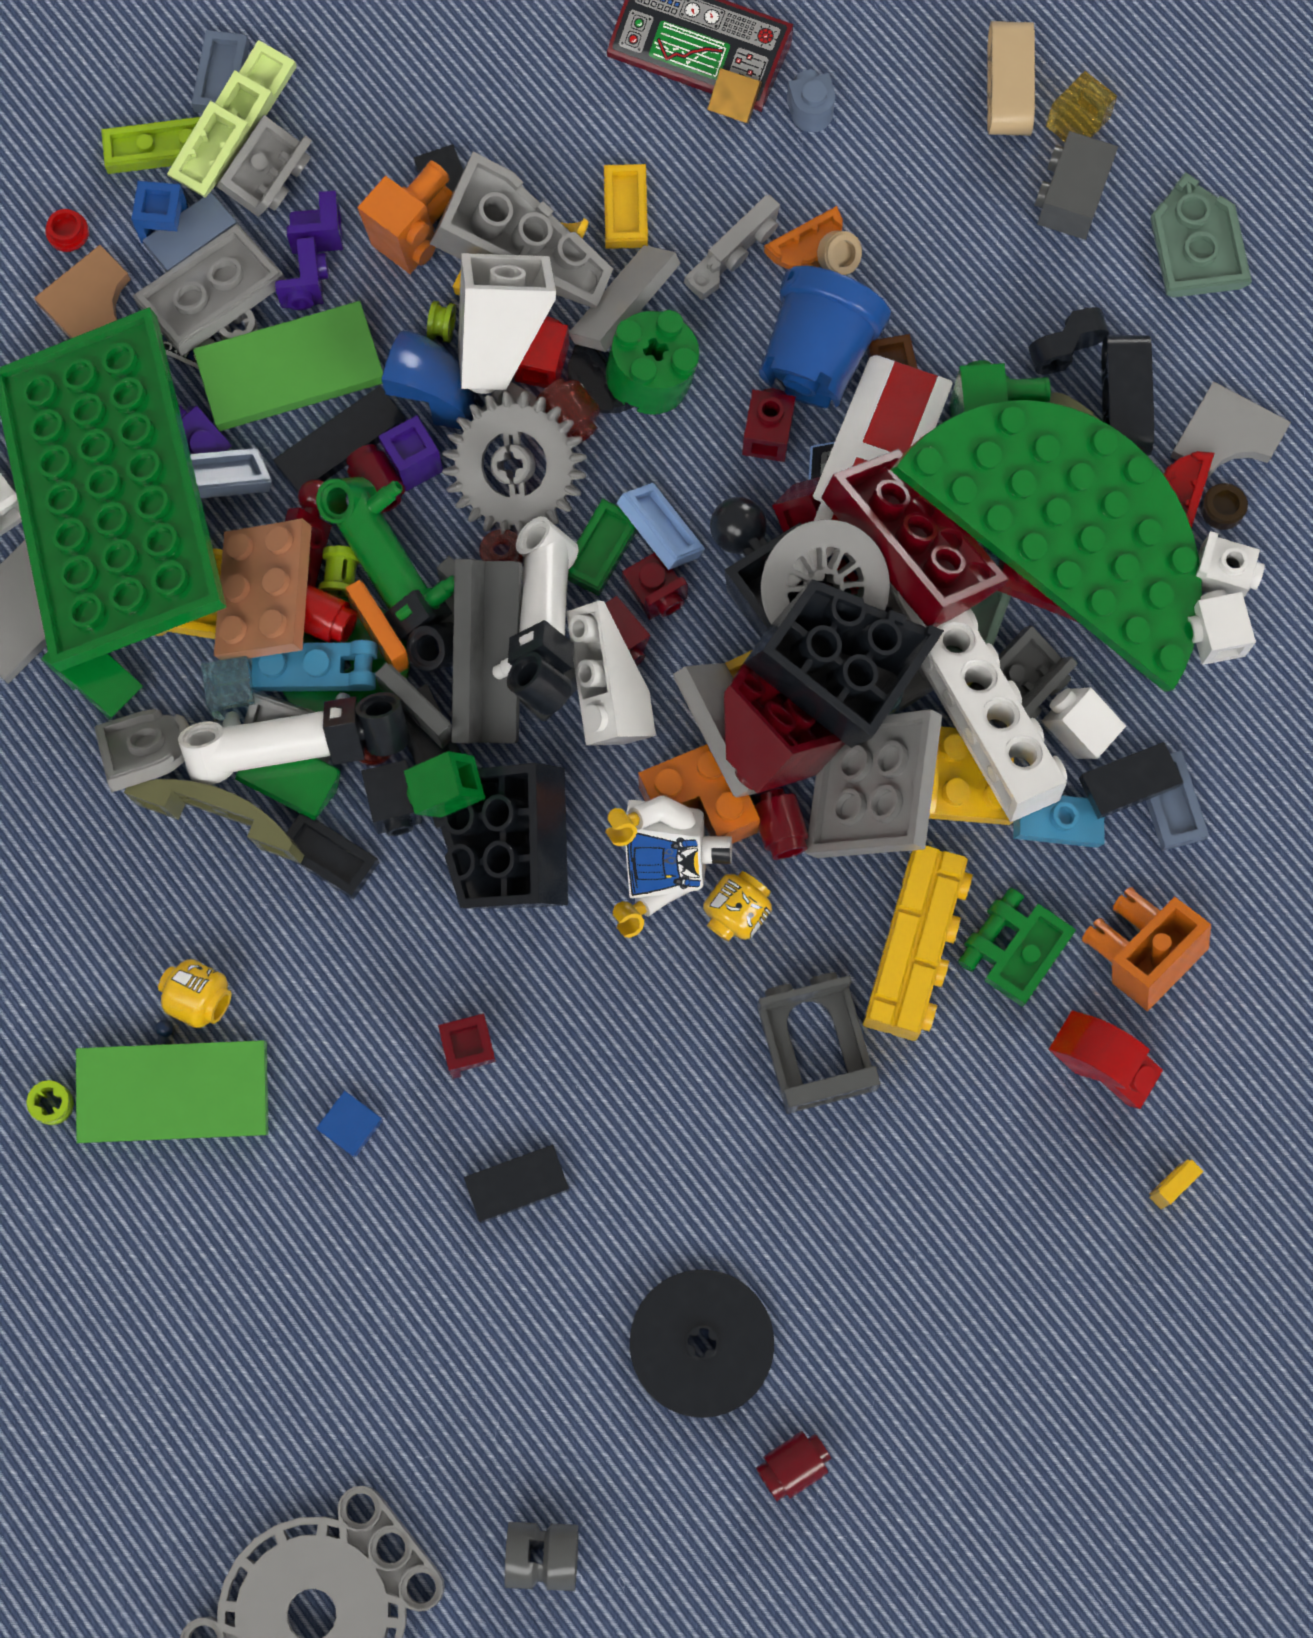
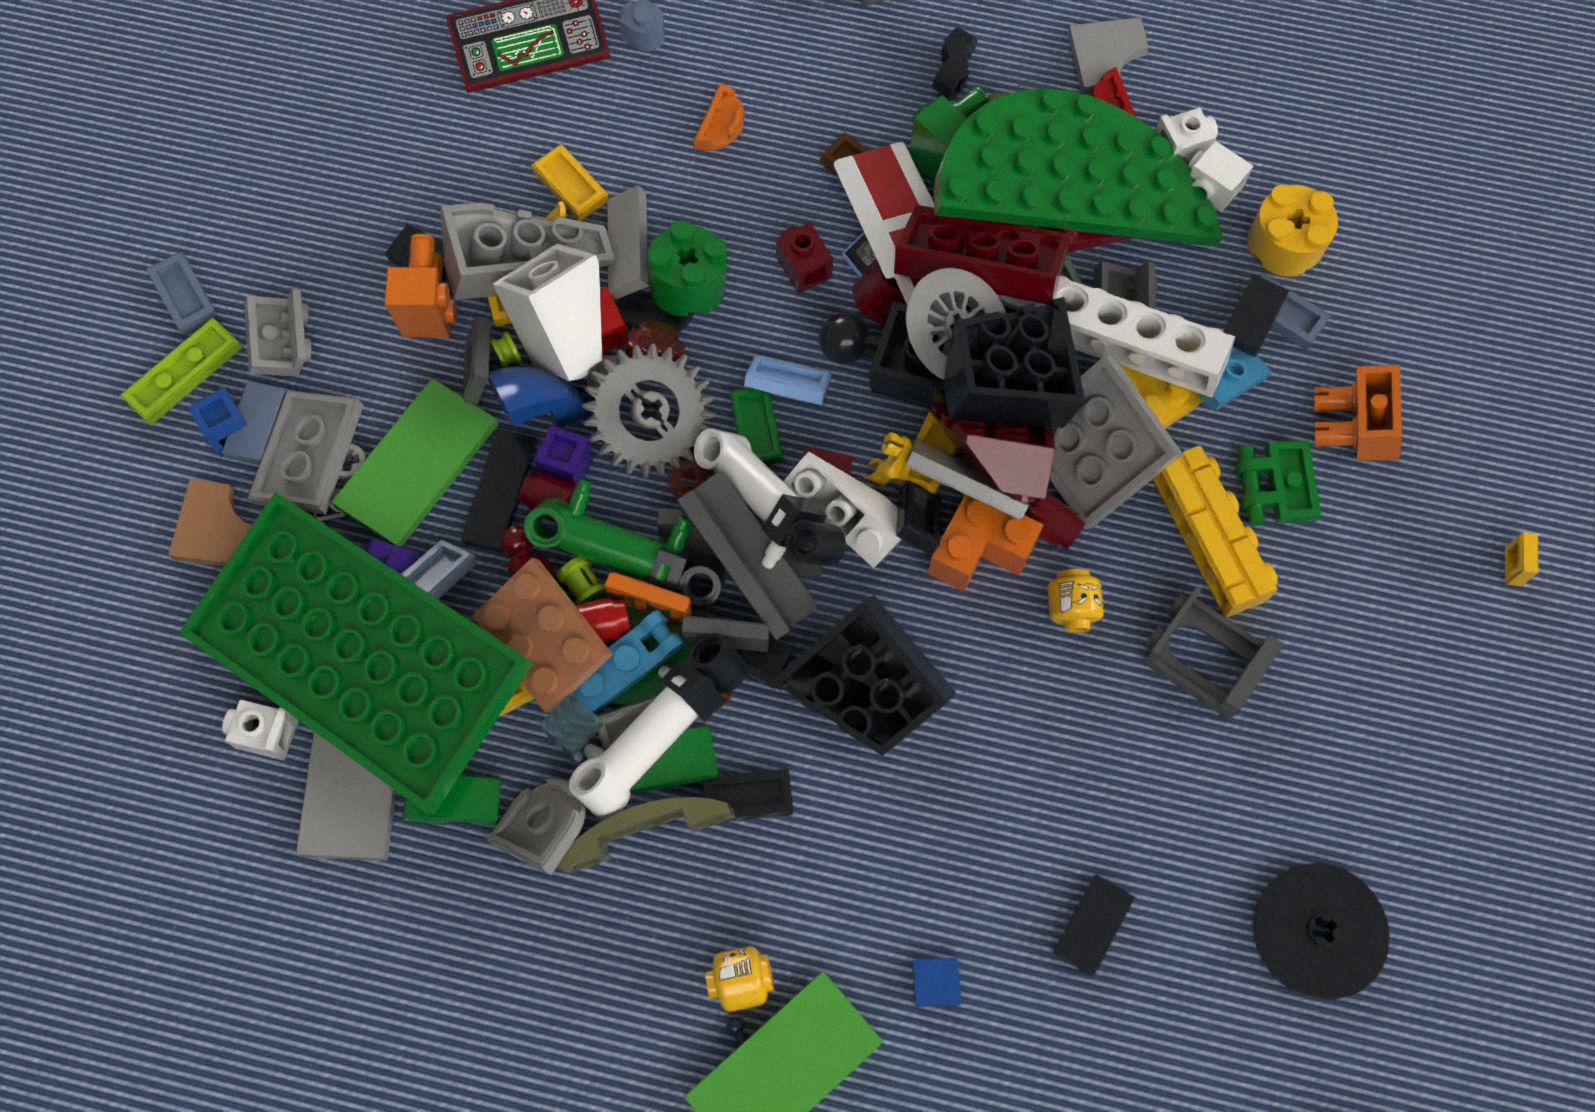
camera: 40 degrees left, 5 degrees down
(66, 230) = (153, 487): red plate -> none
(231, 119) = (222, 316): yellowish green slope -> none
(307, 290) = (377, 382): dark purple bracket -> none
(322, 224) = (354, 351): dark purple panel -> none
(388, 799) = (763, 716): black brick -> none
(406, 311) = (476, 360): none -> dark grey tile
(444, 784) = (802, 672): green brick -> none
(466, 1044) = (976, 851): dark red panel -> none
(655, 586) = (820, 424): dark red bracket -> none
(660, 731) = (918, 517): none -> black tile
(663, 855) = (1000, 602): torso -> none
(678, 660) = (898, 453): none -> yellow arm
(732, 247) = (675, 161): light grey hinge -> none
(734, 95) = (585, 56): pearl gold tile -> none
(794, 1465) = (1462, 964): dark red brick -> none
(821, 334) = (792, 165): blue piece -> none
(839, 252) = (750, 110): tan tile -> none
(1083, 722) = (1192, 297): white brick -> none
(1107, 1055) = (1403, 508): red brick -> none
(1128, 387) = (1017, 61): black beam -> none
(1224, 506) = (1146, 100): dark brown tile -> none
(1247, 705) = (1293, 229): none -> yellow brick

